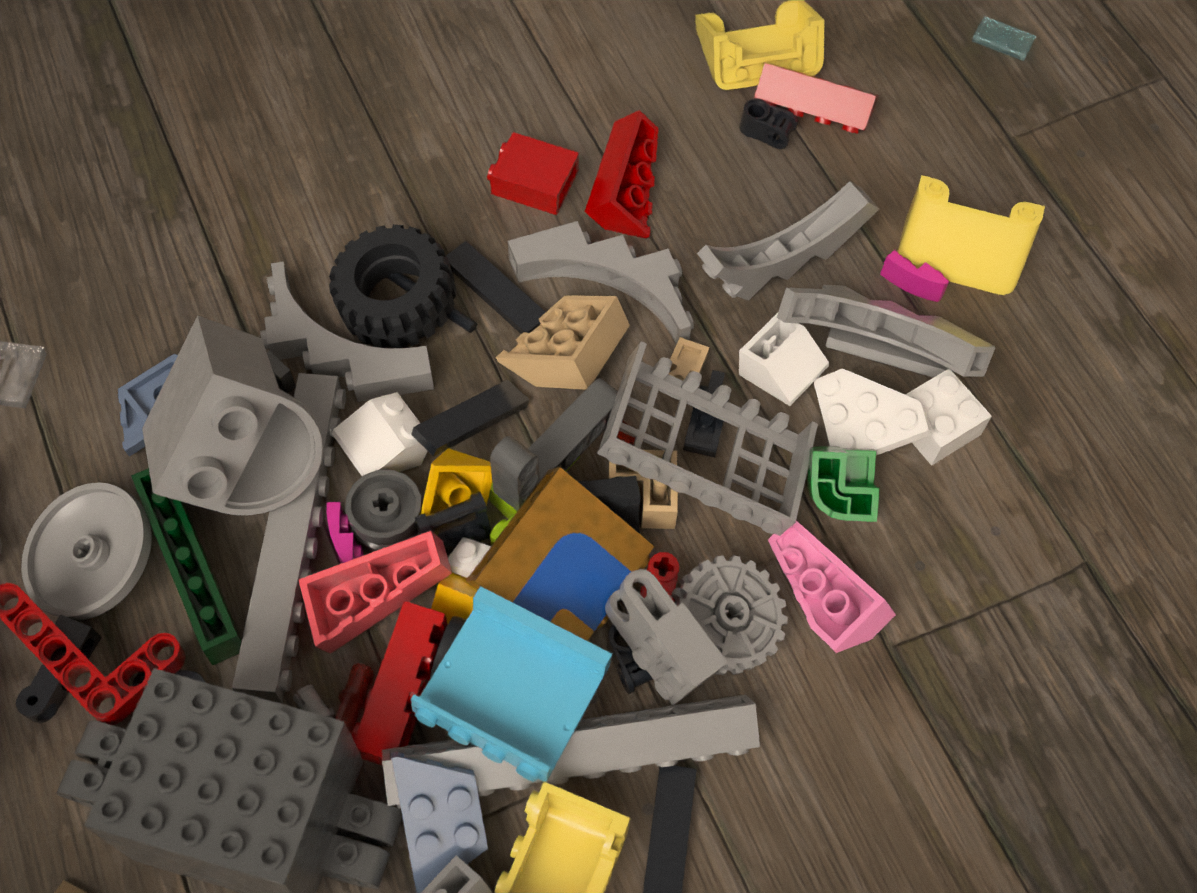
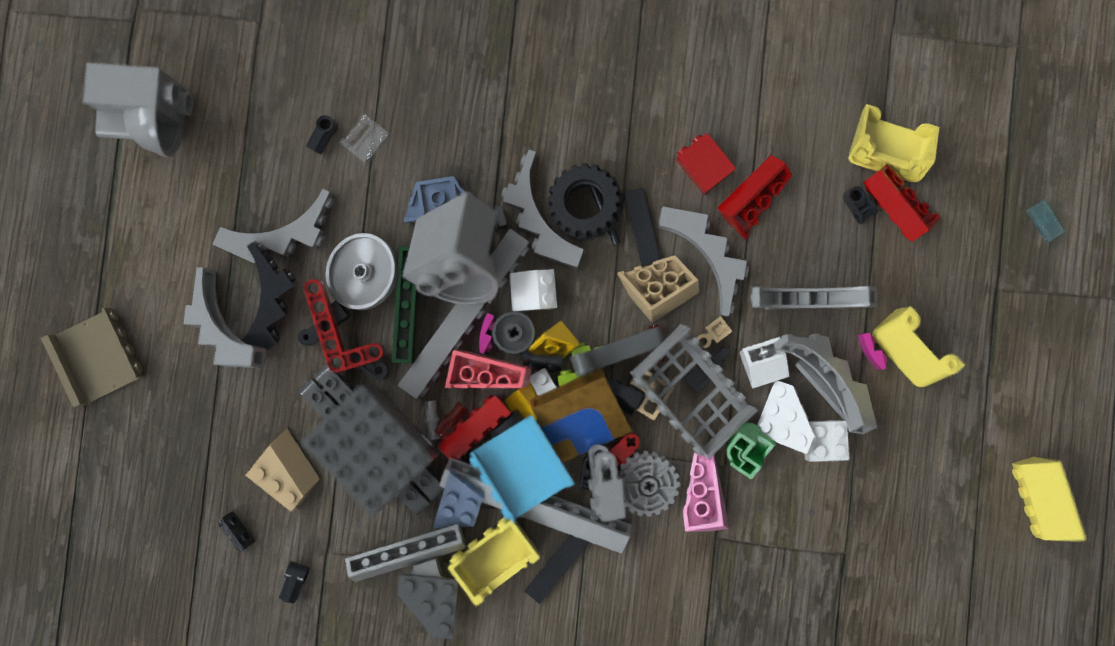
camera: 35 degrees right, 25 degrees up
(469, 417) = (583, 305): black tile -> none

